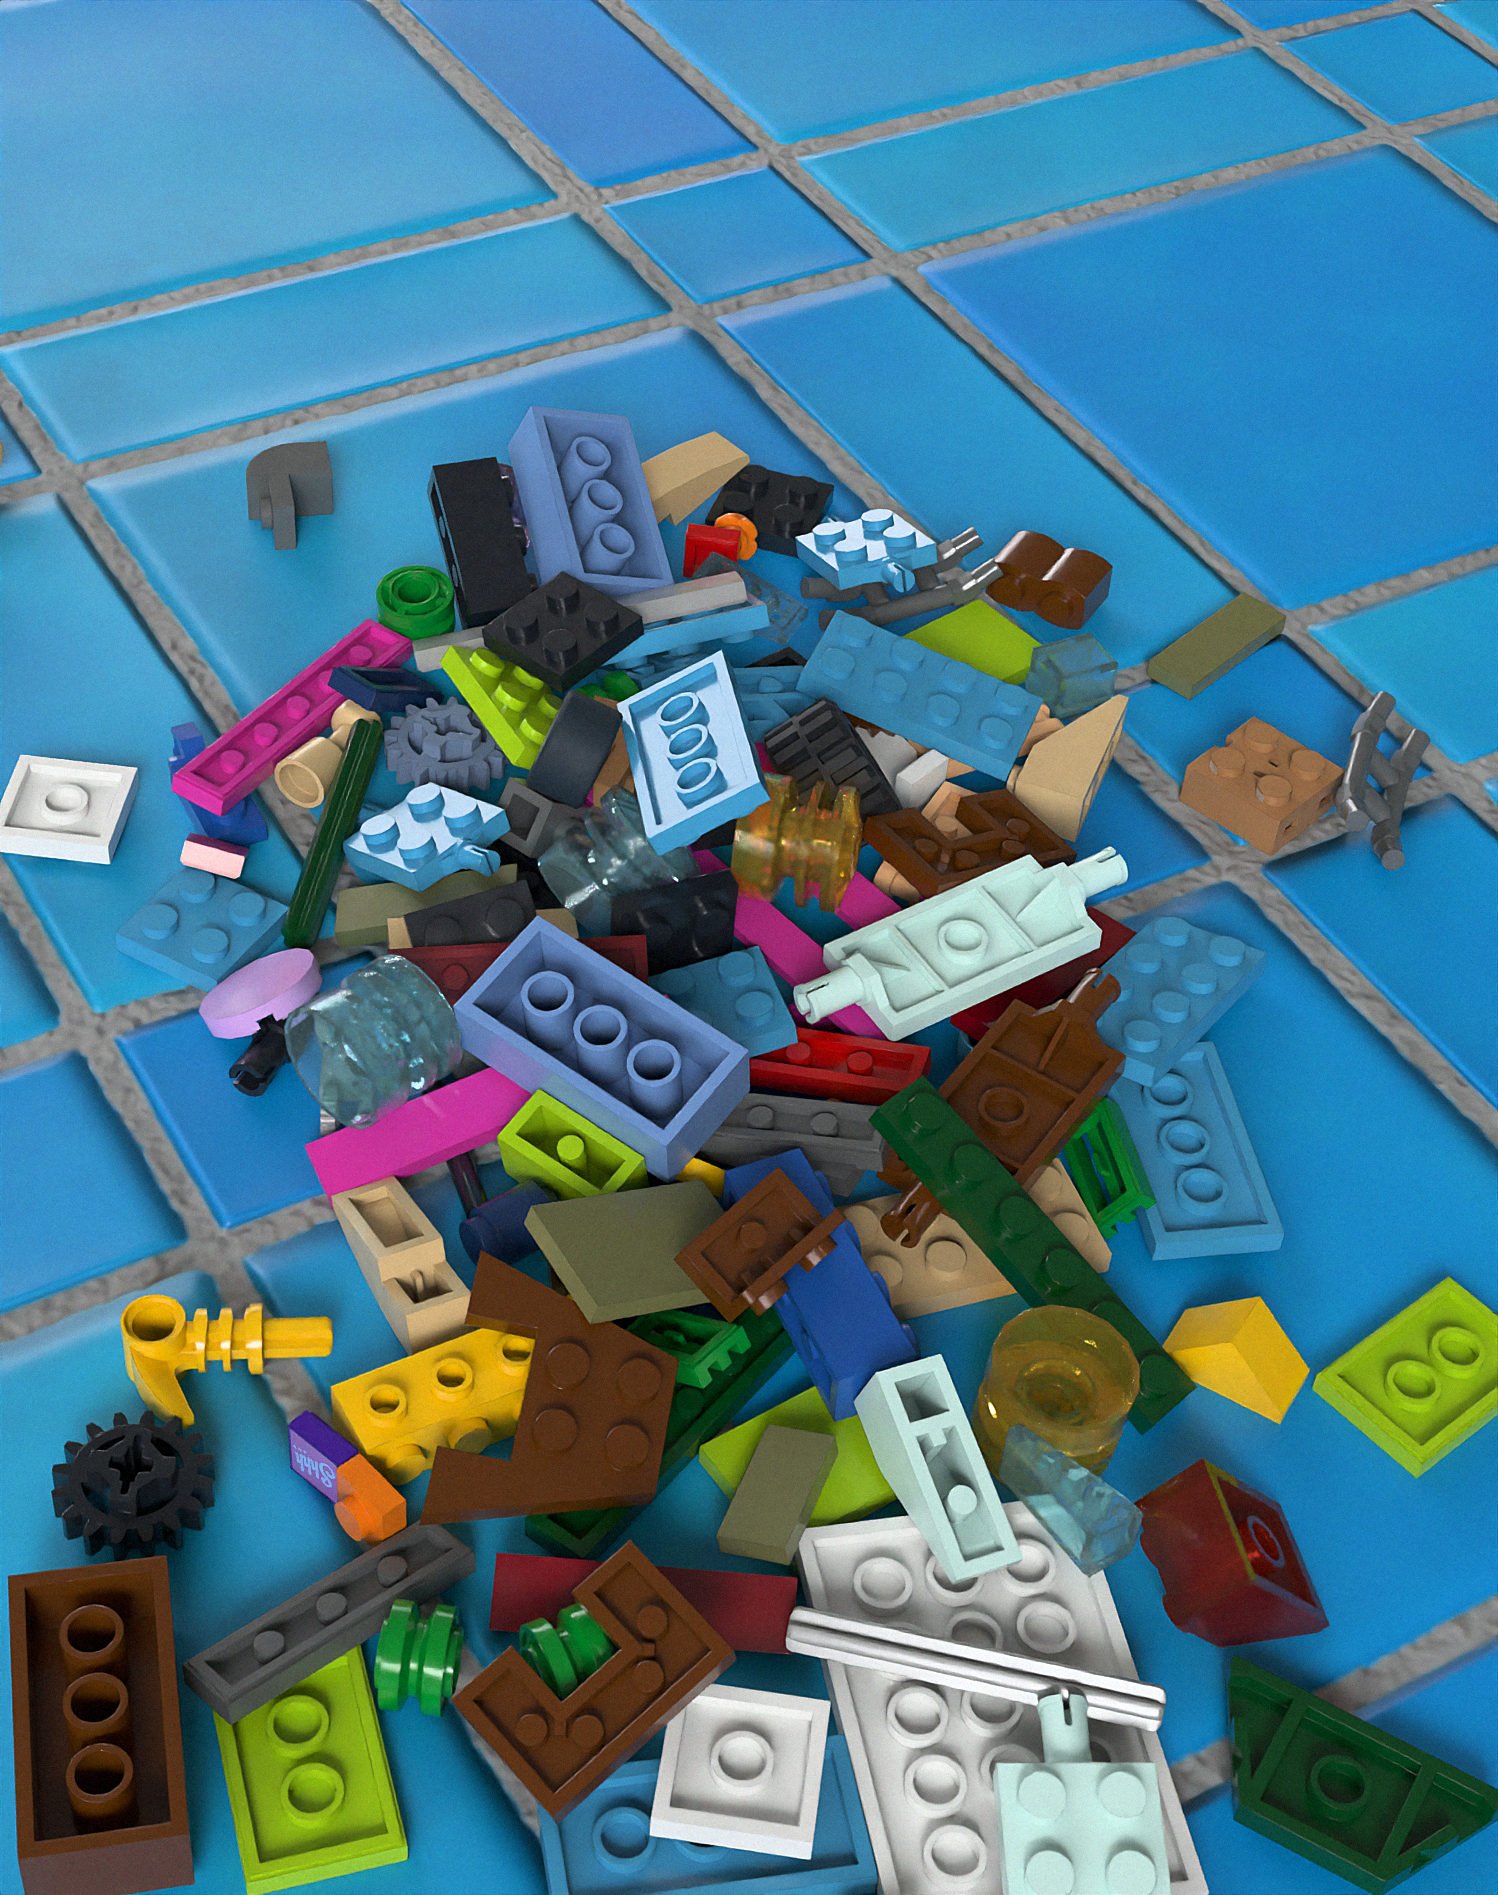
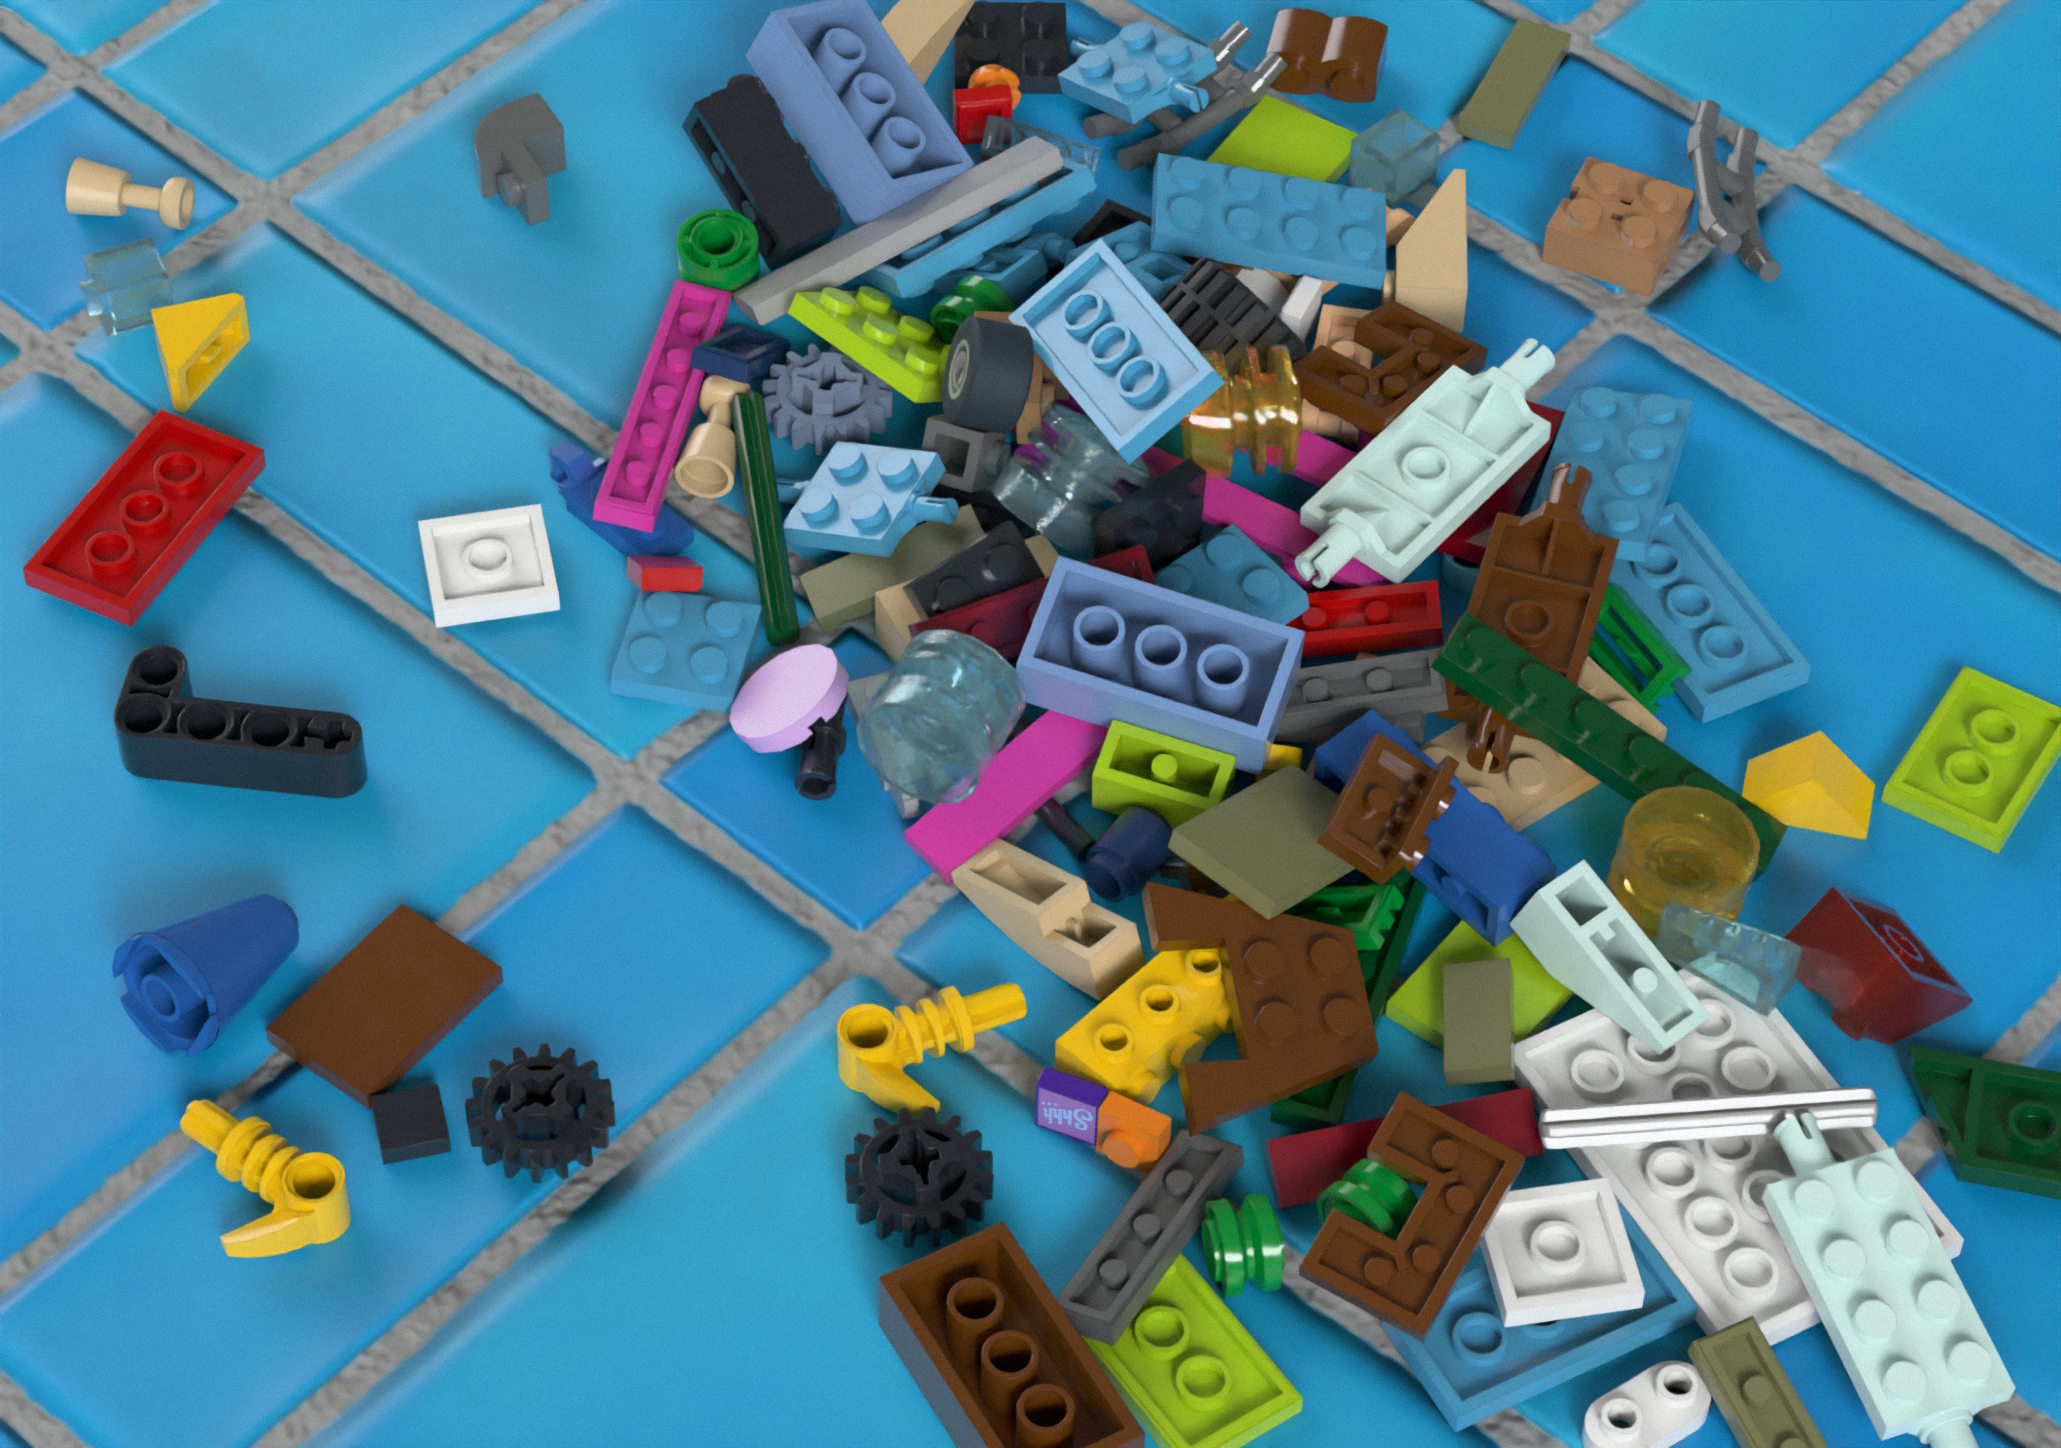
camera: 15 degrees left, 5 degrees up
(563, 631) = (901, 249): black plate -> none

